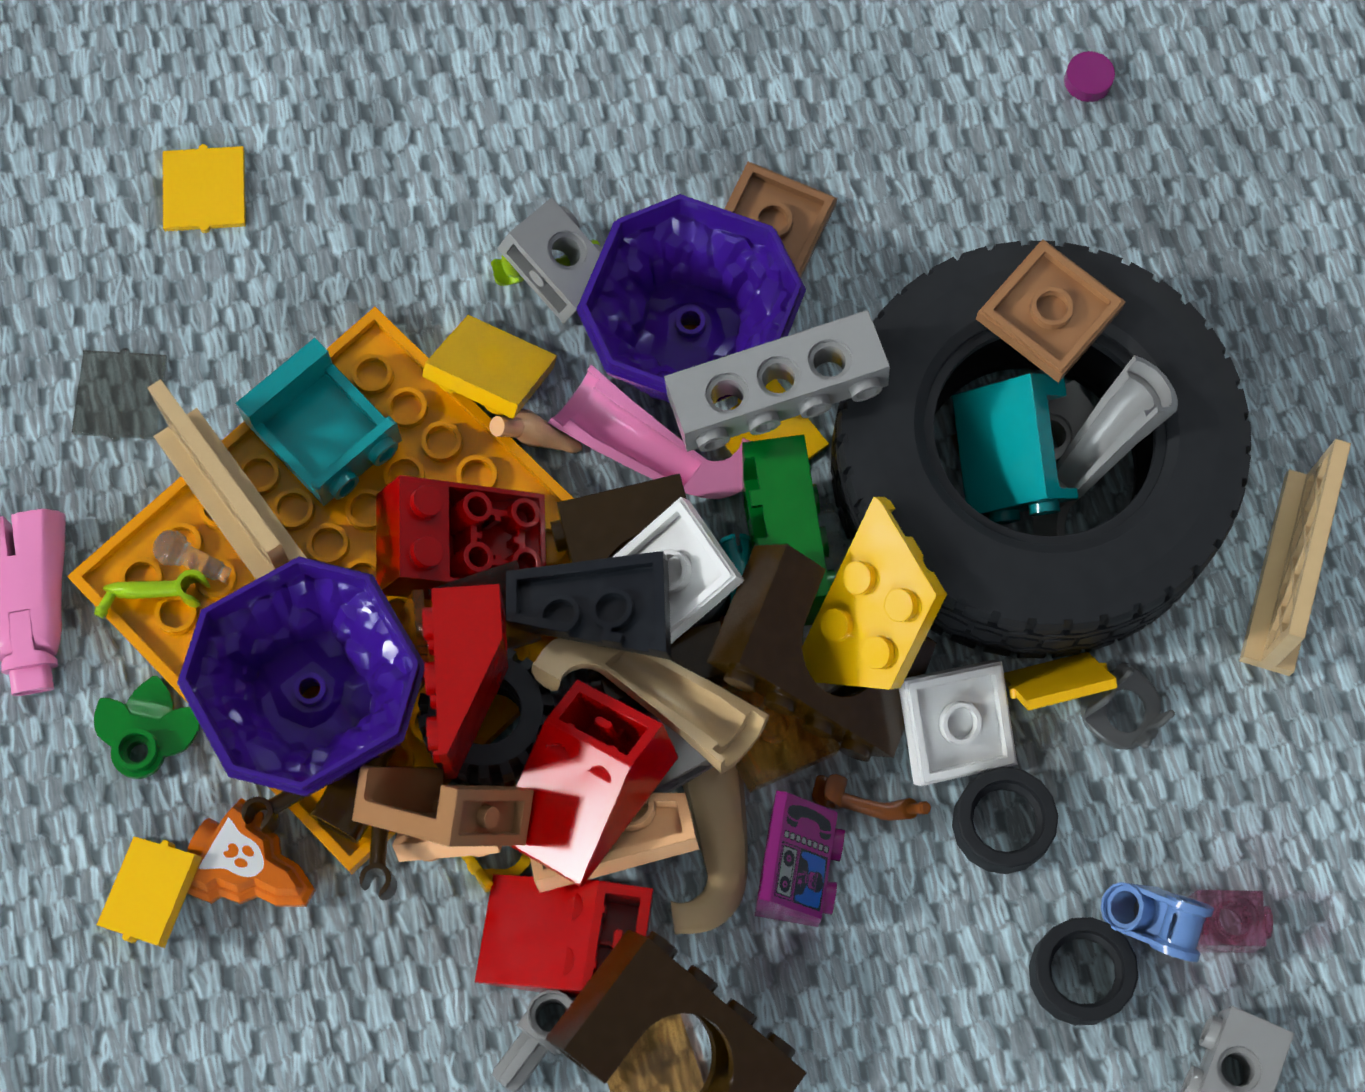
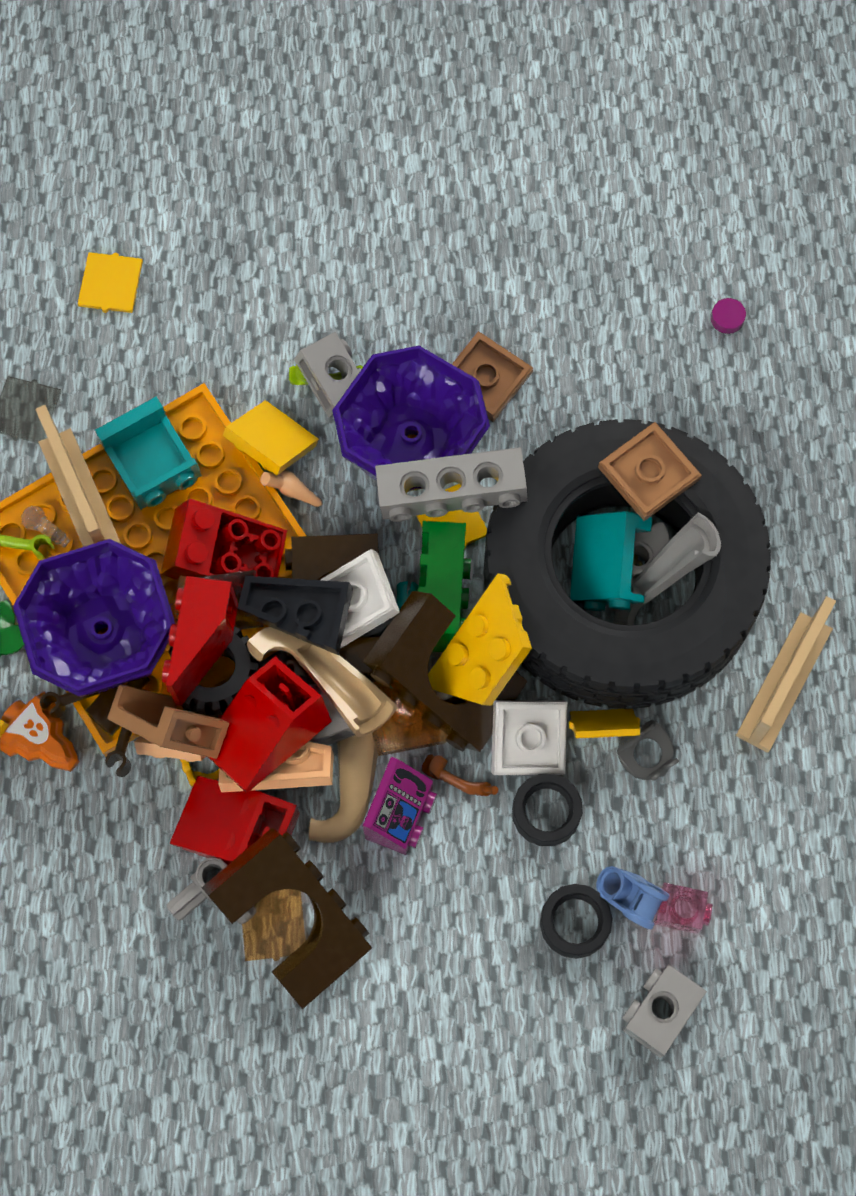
camera: 15 degrees right, 0 degrees up
(625, 432) = (353, 501): bright pink animal -> none

